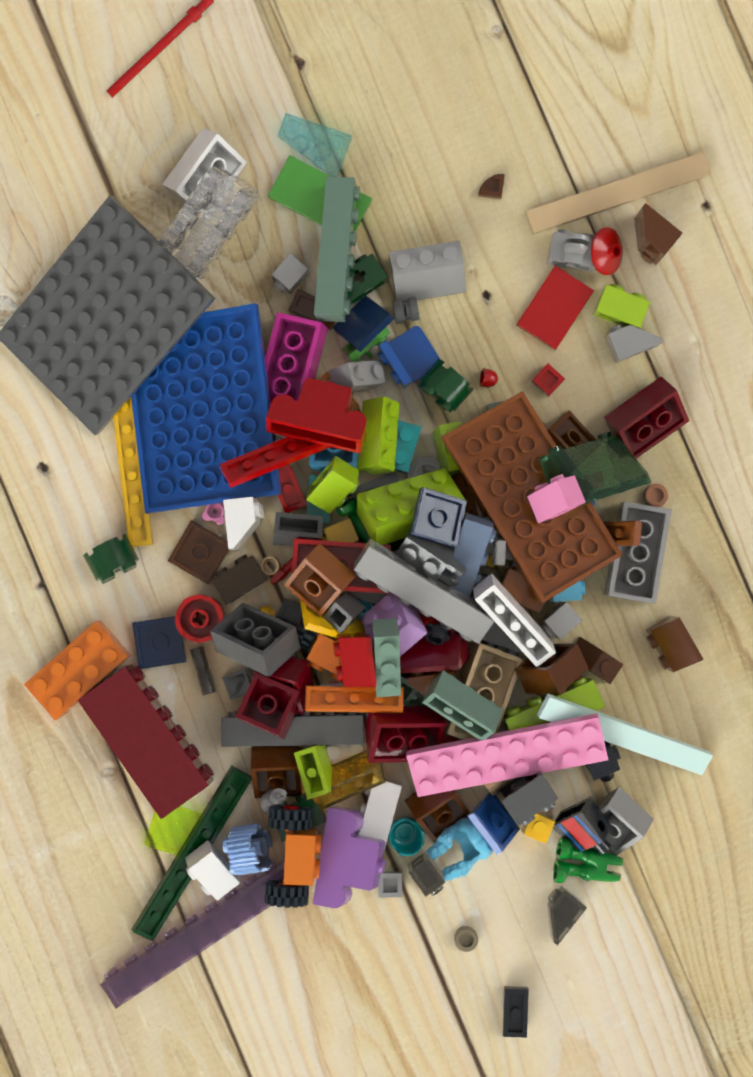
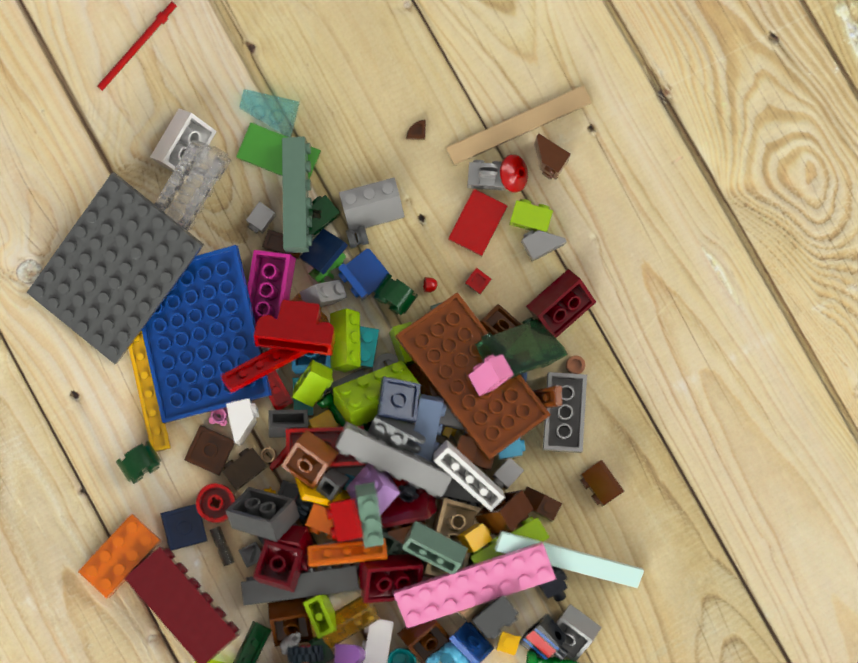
camera: 10 degrees left, 5 degrees down
(499, 551) = (451, 423): light grey tile -> none
(513, 696) = (475, 537): none -> yellow brick

